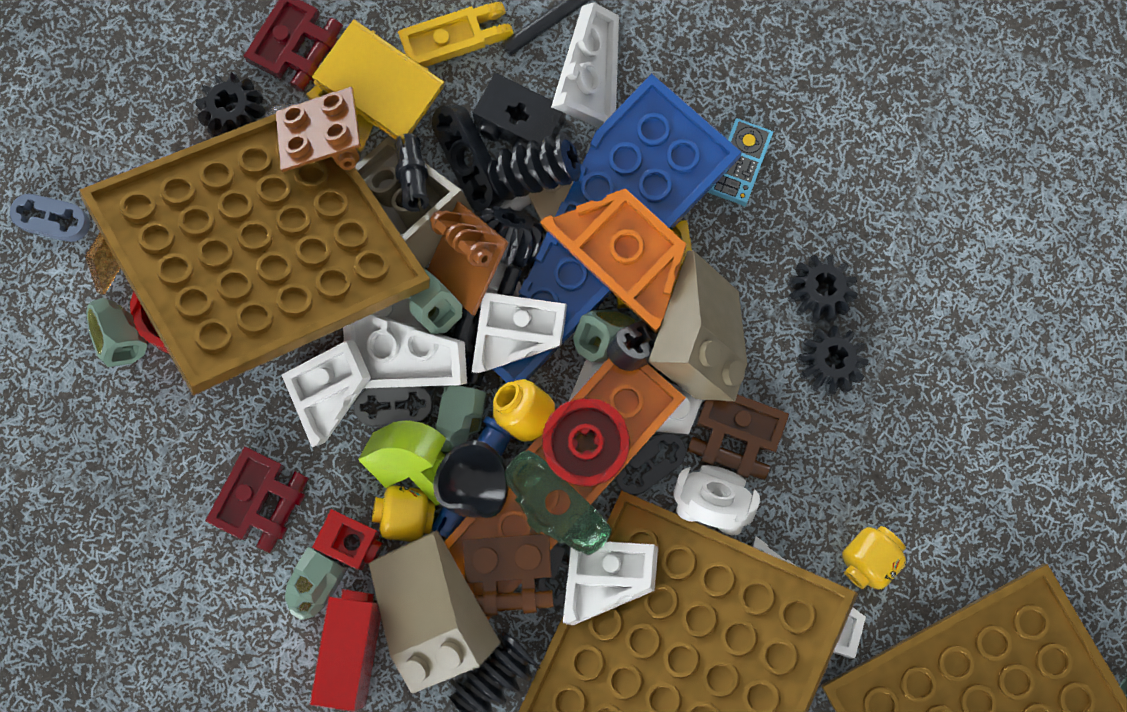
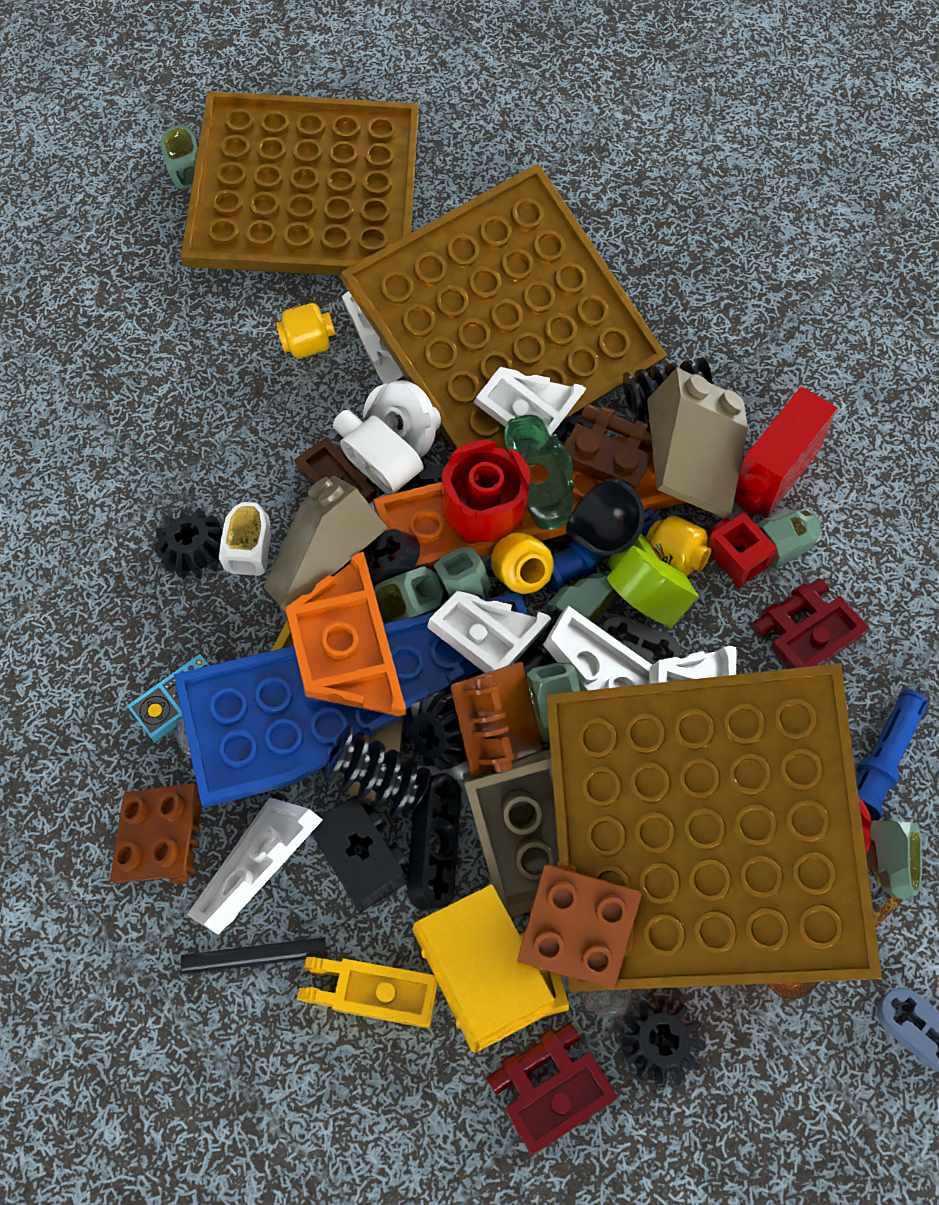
camera: 145 degrees left, 15 degrees down
(151, 397) = (879, 770): none -> blue pin
(411, 172) = (503, 835): black pin -> none
(566, 371) = (463, 572): none -> sand green rock
(679, 52) = (157, 834): none -> dark orange hinge
(715, 451) = (377, 451): none -> white piece
(777, 316) = (245, 540): none -> white rock
(845, 371) = (226, 482): black gear -> none

